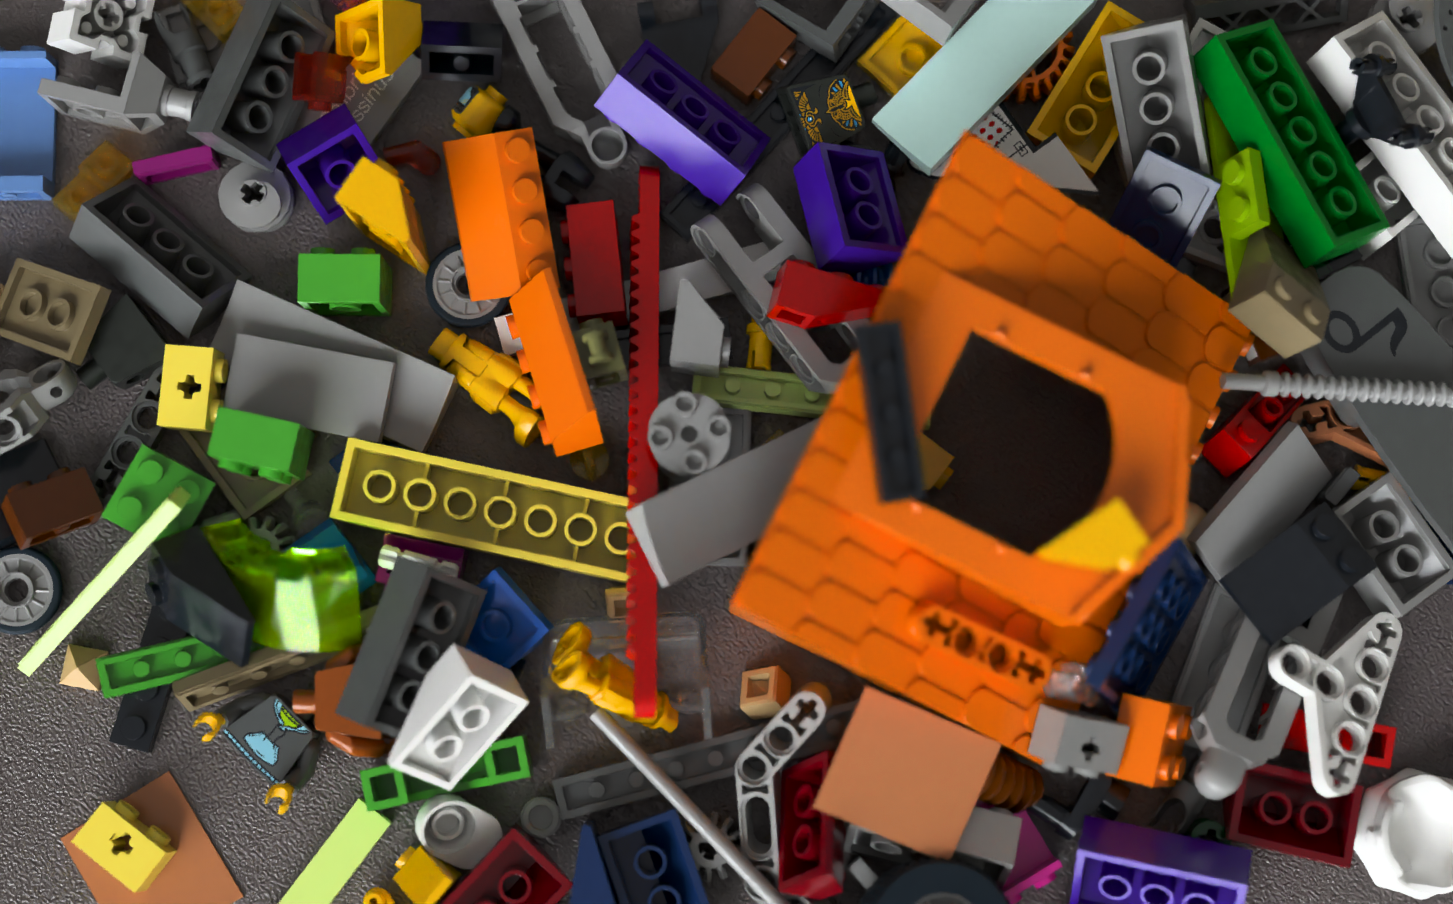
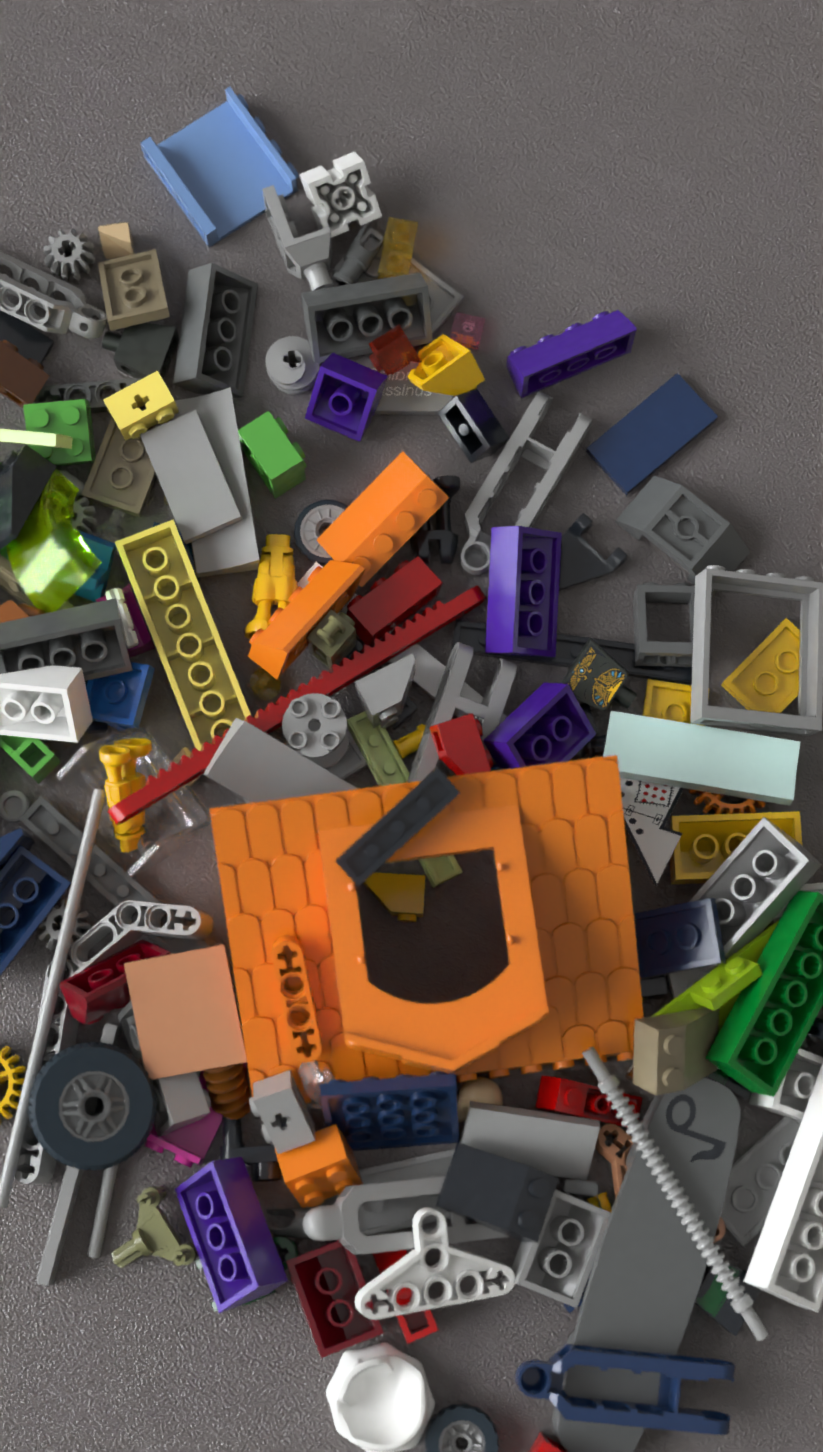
camera: 60 degrees right, 5 degrees down
(97, 174) = (243, 261): clear yellow slope -> none
(176, 165) = (279, 303): magenta tile -> none
(260, 443) = (130, 464): bright green brick -> none
(385, 211) = (332, 446): yellow slope -> none
(416, 154) = (389, 442): clear red arm -> none
(478, 111) = (442, 461): yellow head -> none
(754, 57) = (601, 611): reddish brown brick -> none
(764, 691) = (188, 892): tan slope -> none
(1100, 540) = (404, 1016): yellow slope -> none

